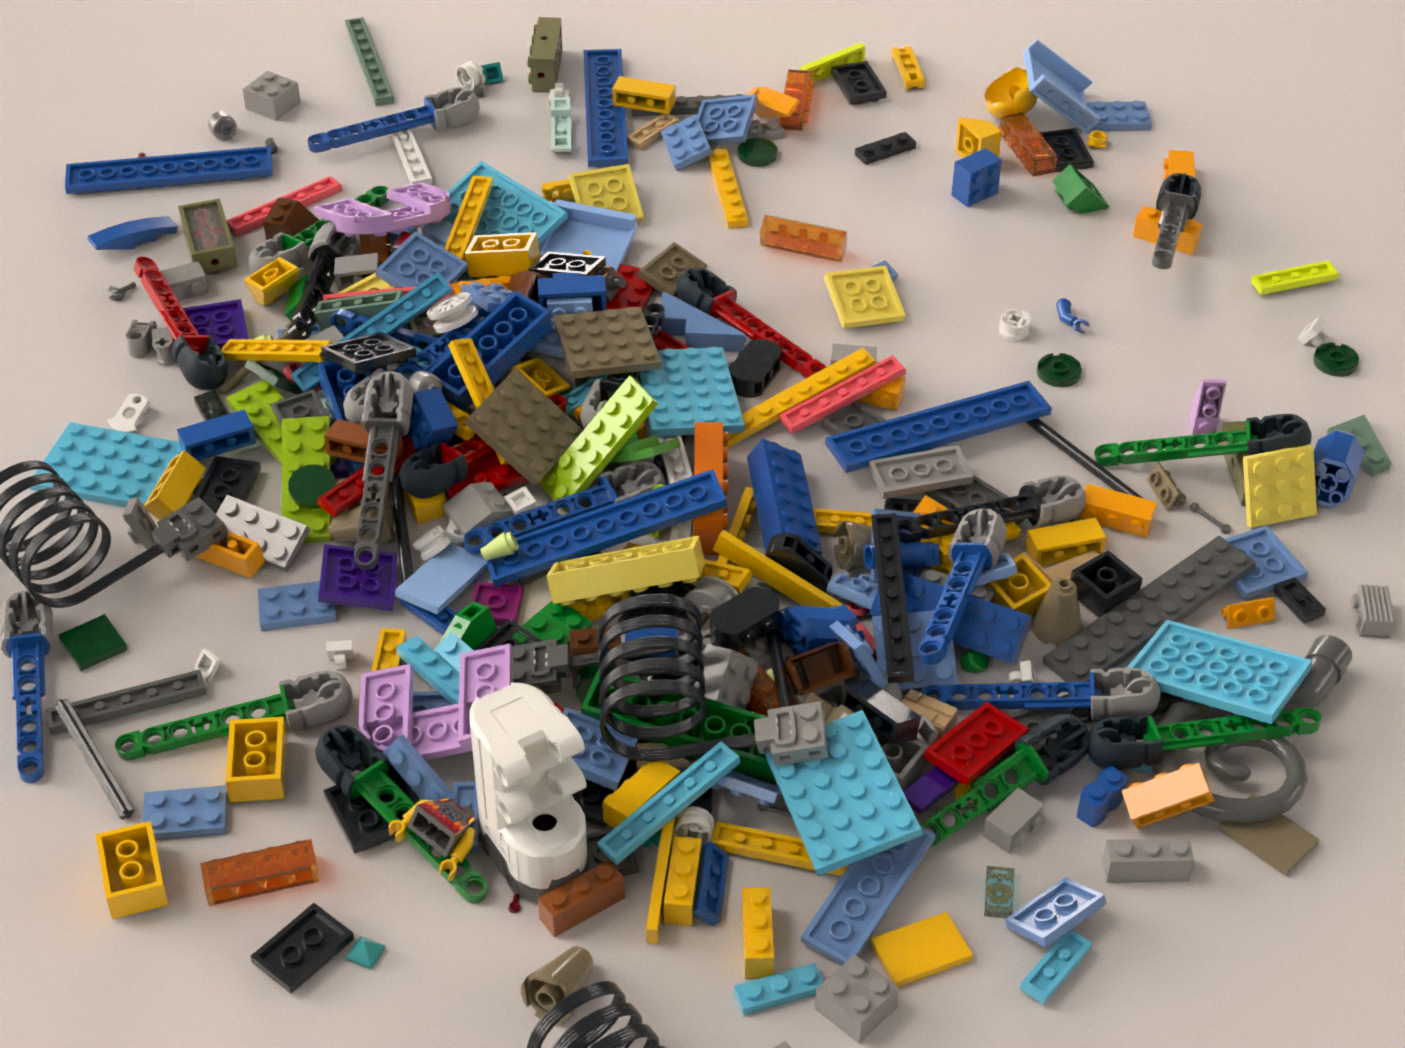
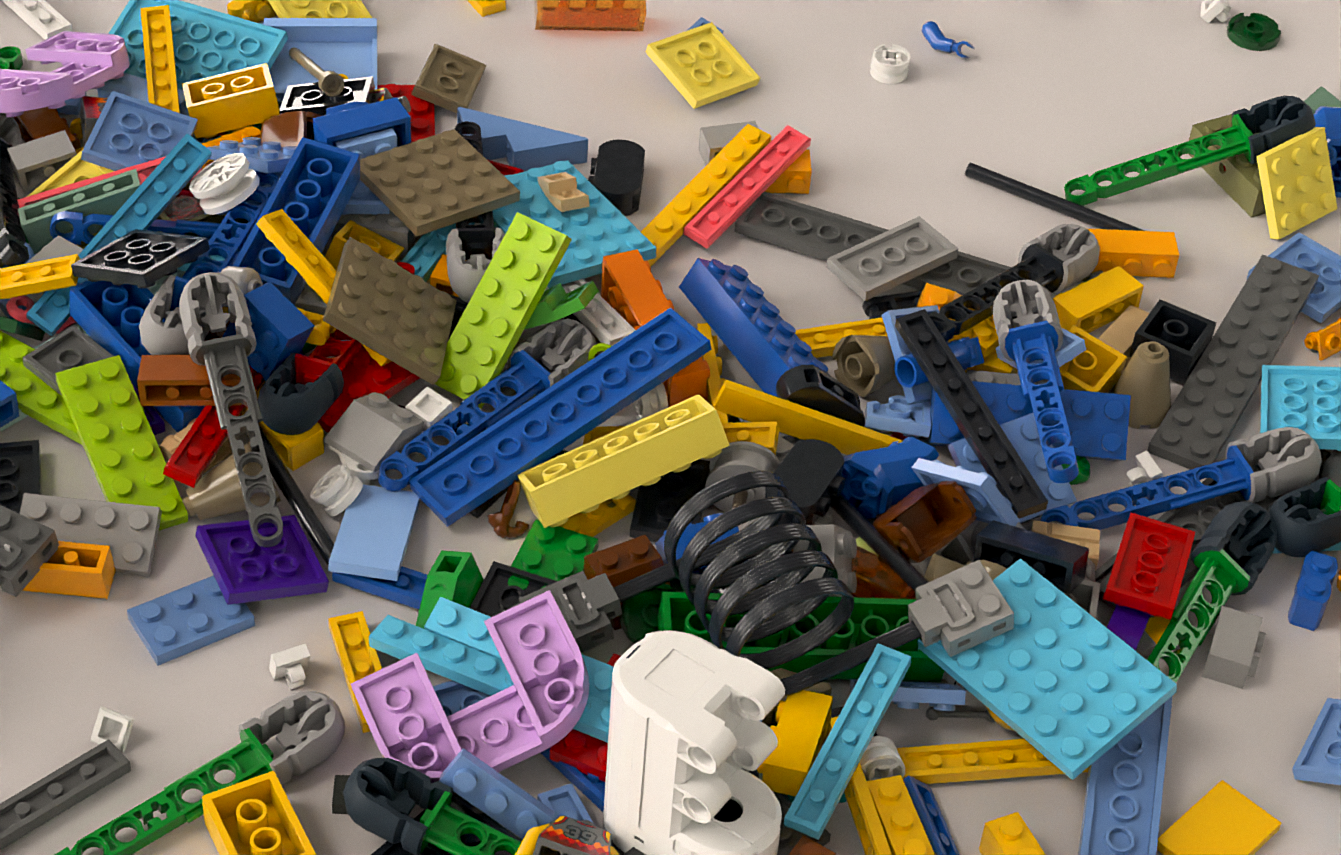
camera: 25 degrees left, 0 degrees up
(309, 484) = (139, 453): dark green tile -> none
(501, 546) = (438, 471): yellowish green cone -> none
(503, 600) = (461, 536): magenta tile -> none
(535, 592) = (501, 520): none -> reddish brown piece
(570, 254) = (329, 81): none -> dark tan piece
(698, 369) = (563, 191): none -> tan slope
(712, 296) = (515, 98): red piece -> none
(938, 425) = (877, 200): blue plate -> none
(999, 892) = (1262, 738): clear light blue tile -> none
(1059, 370) = (967, 106): dark green tile -> none
(1165, 487) = (1164, 214): dark tan hinge -> none
(1207, 406) = (1164, 111): lavender slope -> none
(1225, 528) = (1251, 247): dark grey hinge -> none

